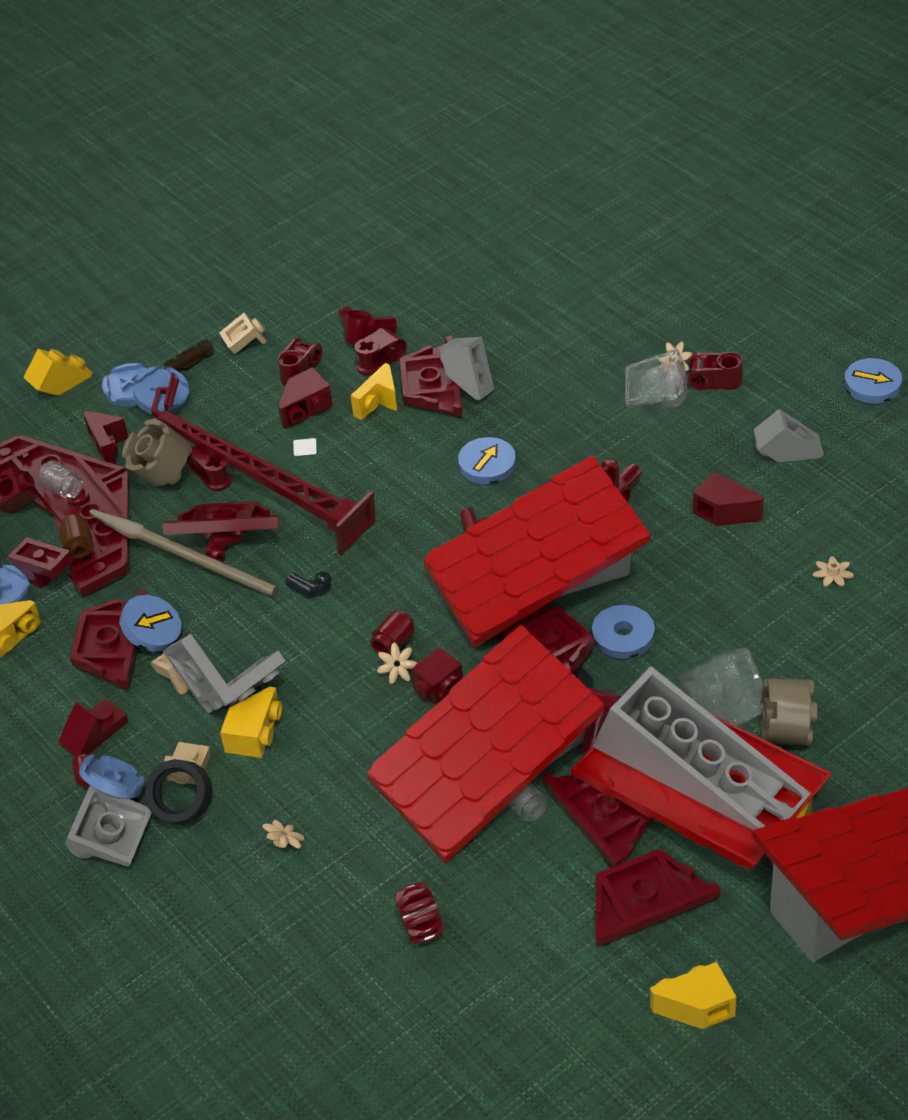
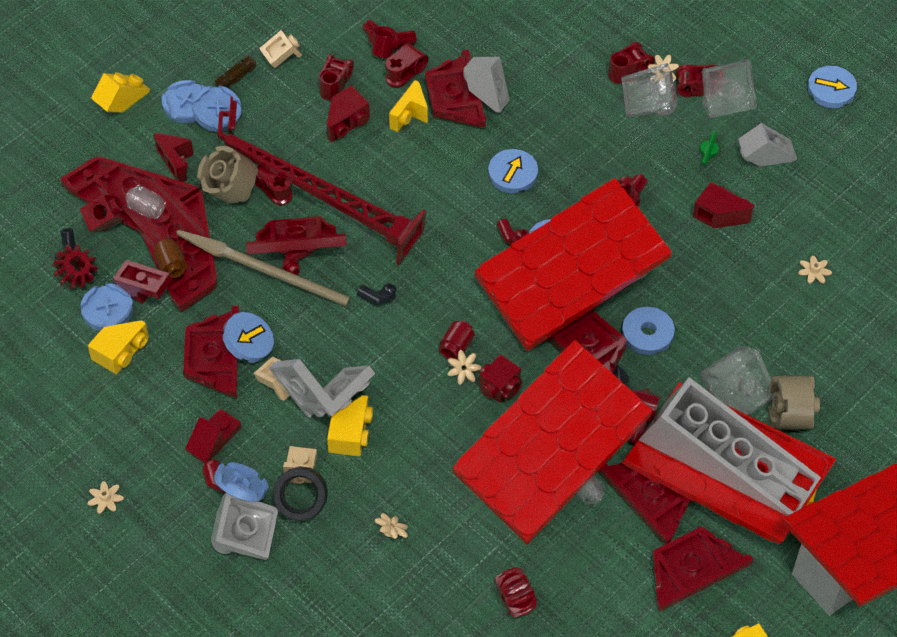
camera: 10 degrees left, 10 degrees up
(304, 447) = (351, 160): white sticker -> none
(634, 349) = (628, 61): none -> dark red piece
(720, 441) = (709, 148): none -> green piece
(746, 375) = (728, 89): none -> clear slope

